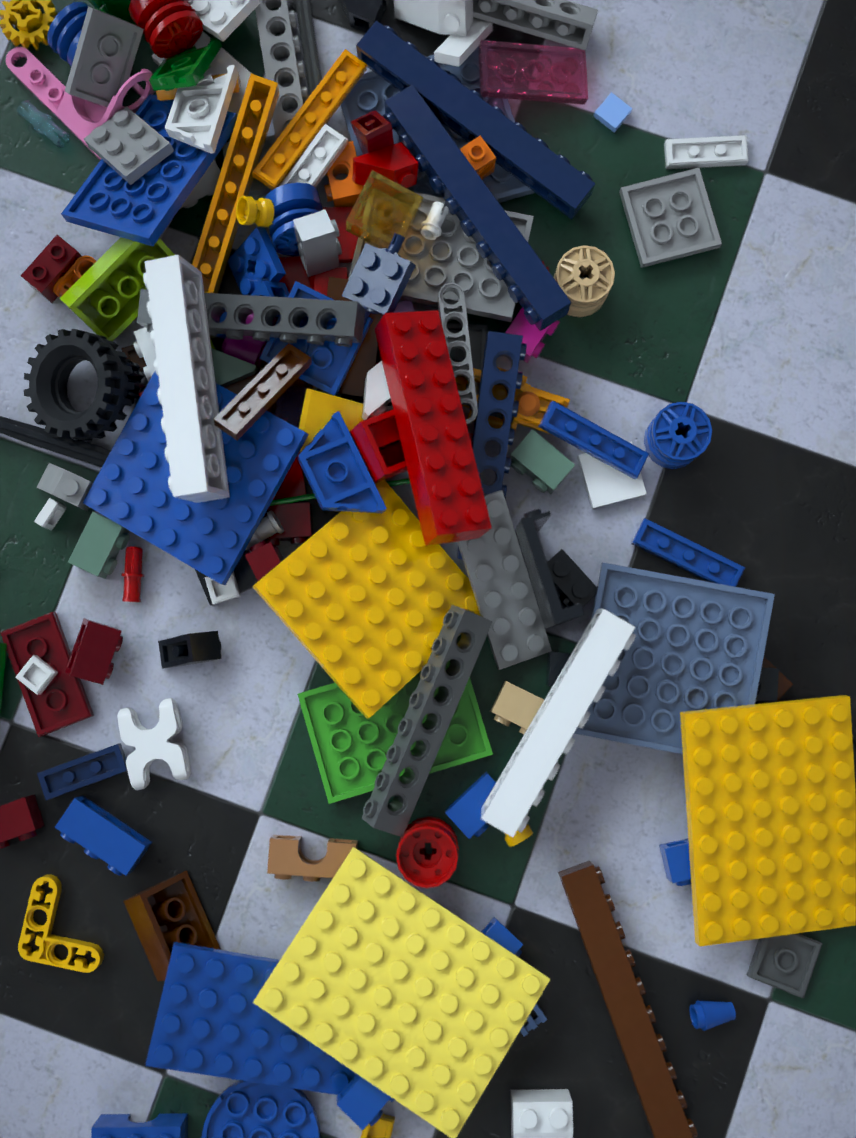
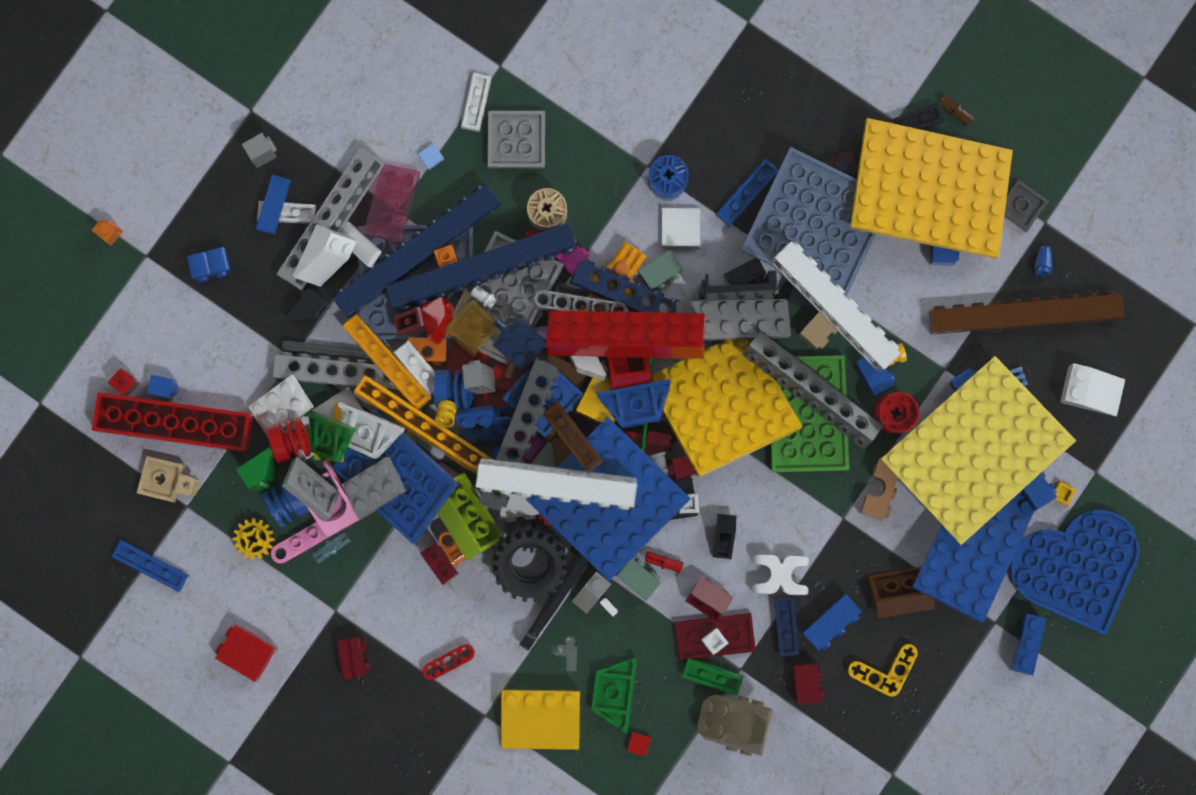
camera: 75 degrees left, 0 degrees up
(593, 440) = (656, 233): blue tile -> none

